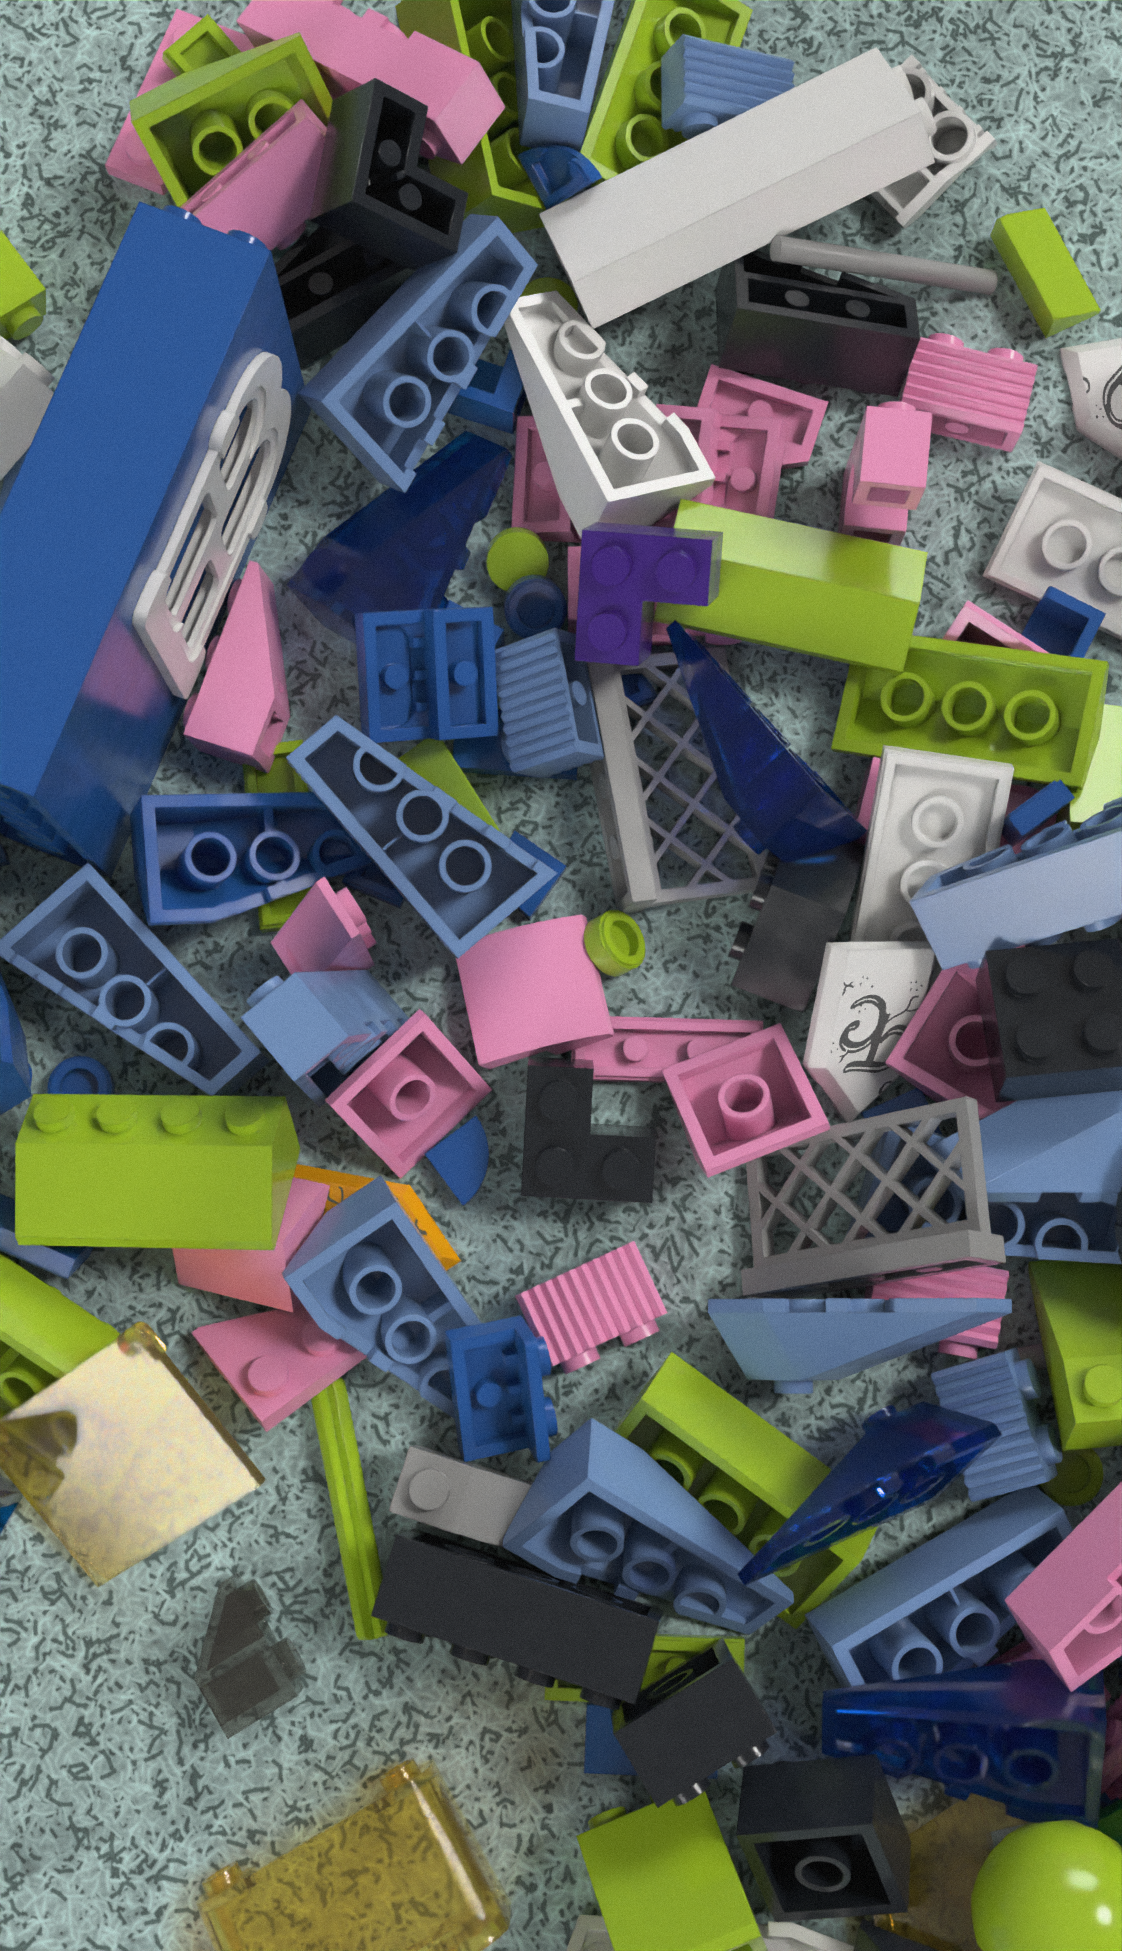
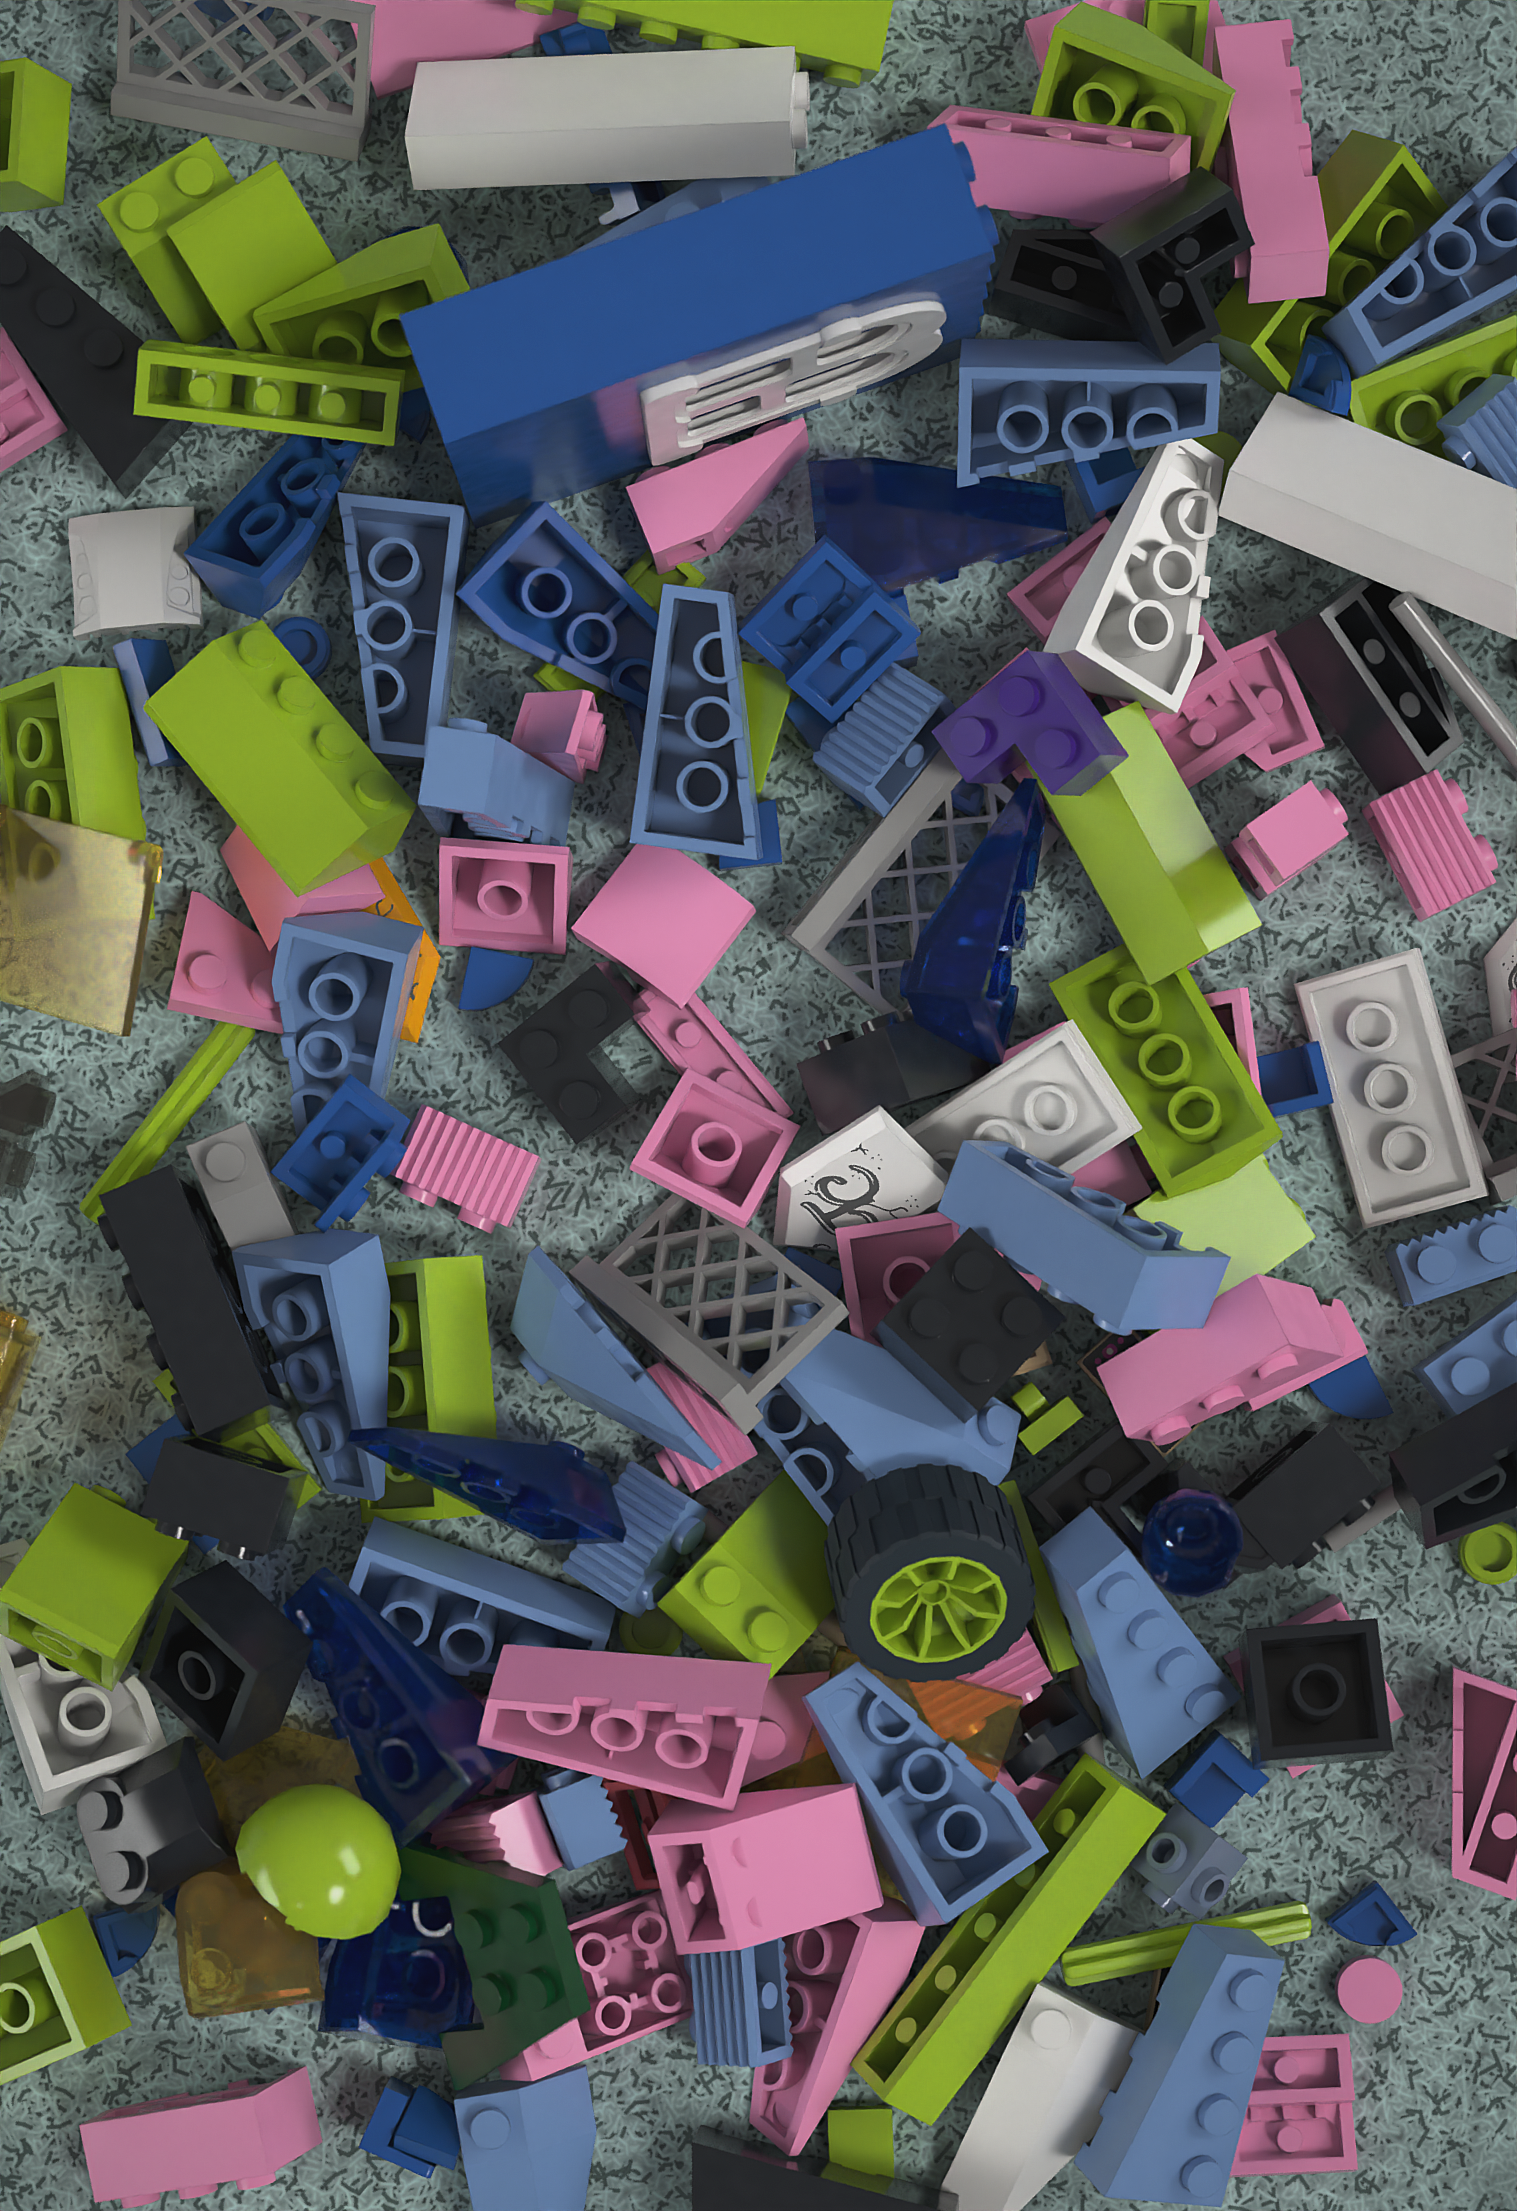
camera: 55 degrees right, 5 degrees up
(515, 555) = (988, 617): lime tile -> none
(534, 605) = (963, 662): blue tile -> none
(614, 943) = (754, 949): lime tile -> none
(1035, 812) = (1121, 1178): blue tile -> none

